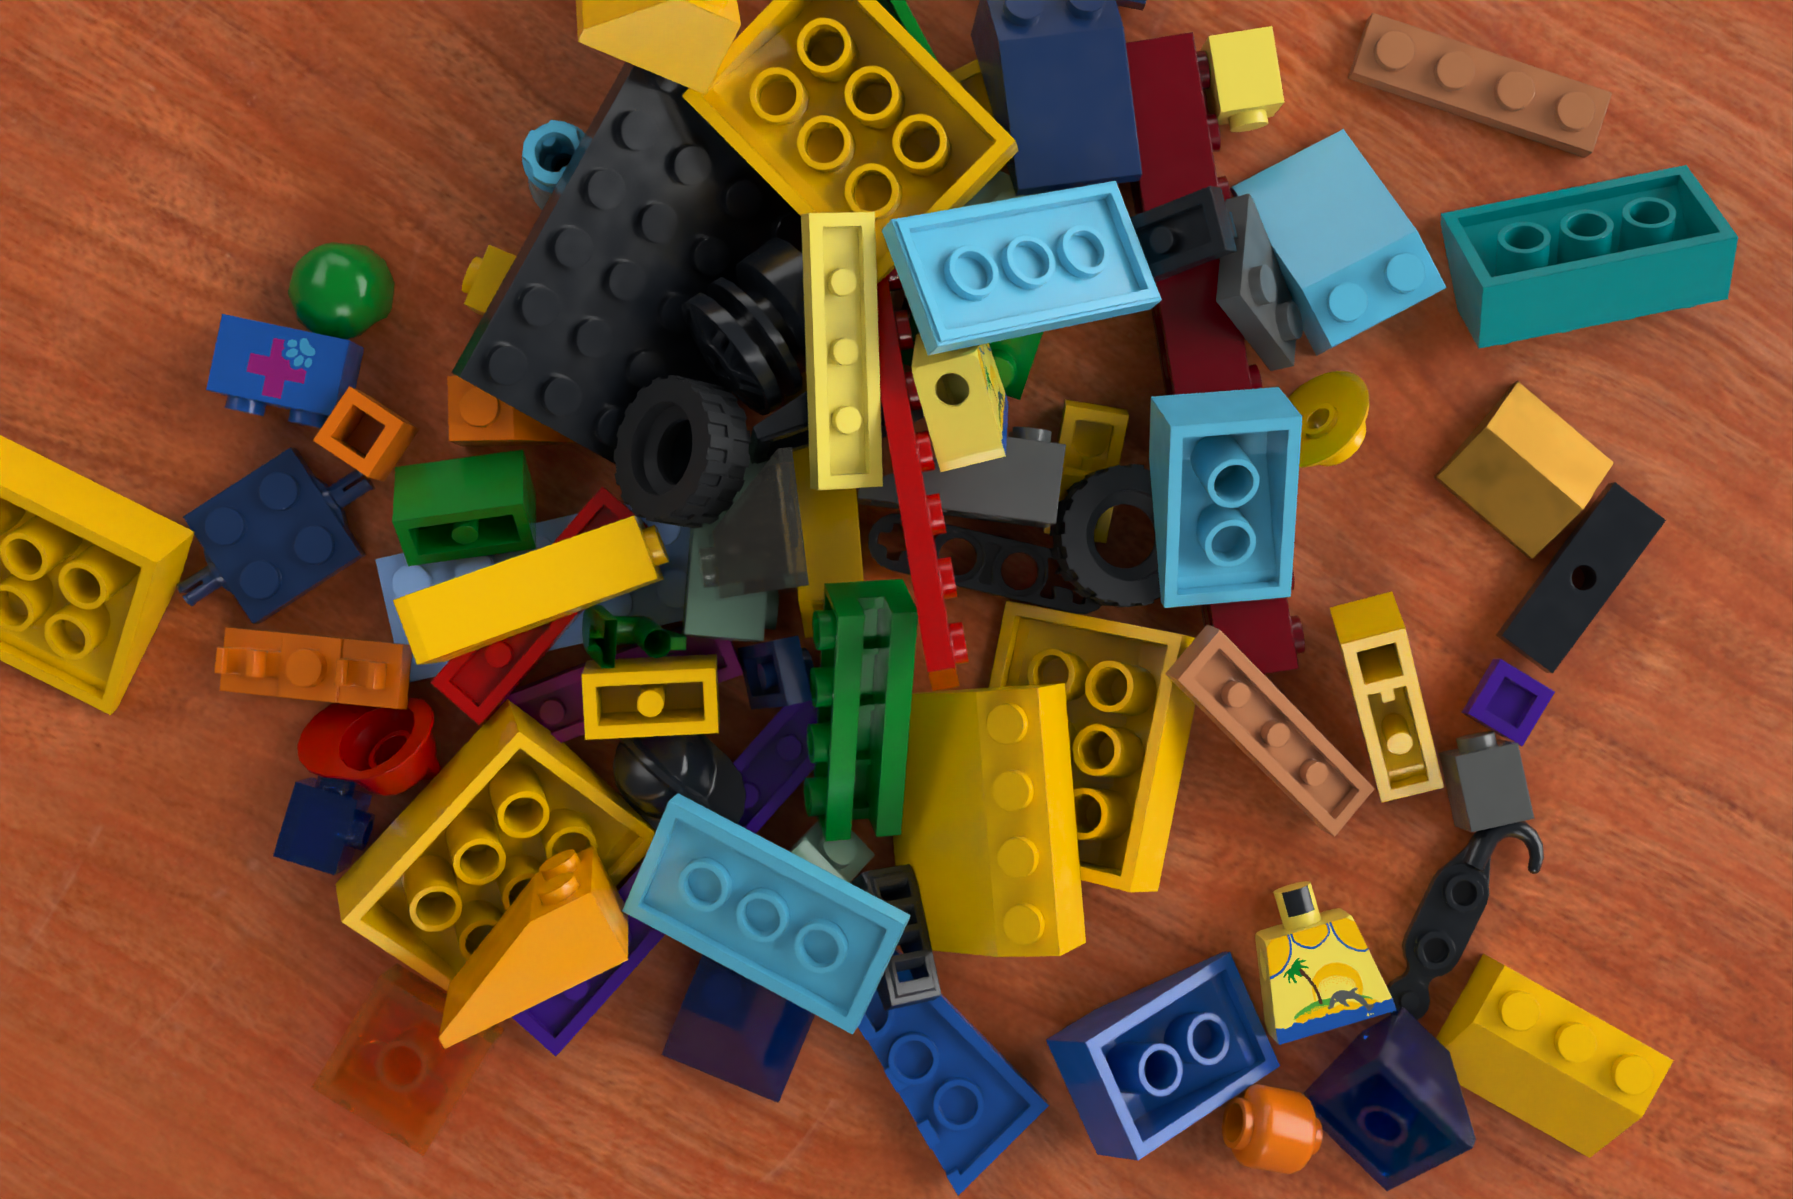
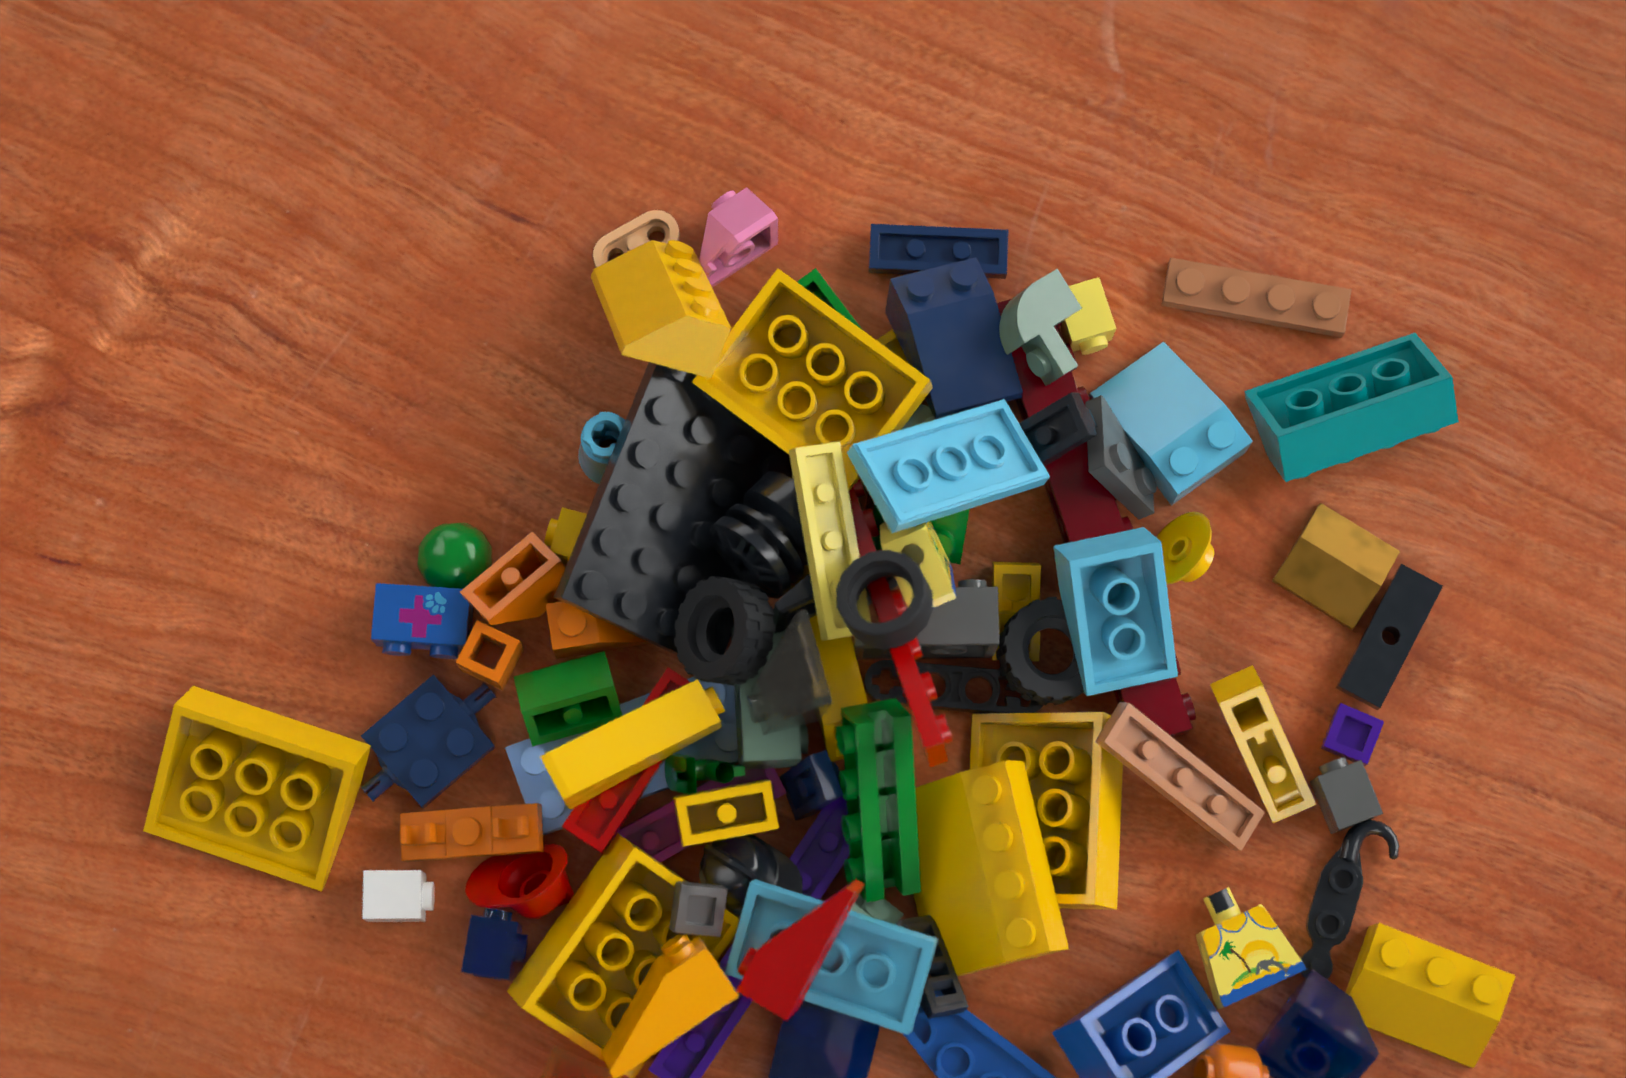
camera: 10 degrees left, 10 degrees down
(204, 738) = (396, 896): none -> white brick
(409, 343) = (517, 583): none -> orange slope
(597, 821) = (698, 909): none -> flat silver plate
(707, 914) = (787, 963): none -> red slope
(872, 410) = (869, 569): none -> black tyre
(1168, 80) = (1030, 324): none -> brick

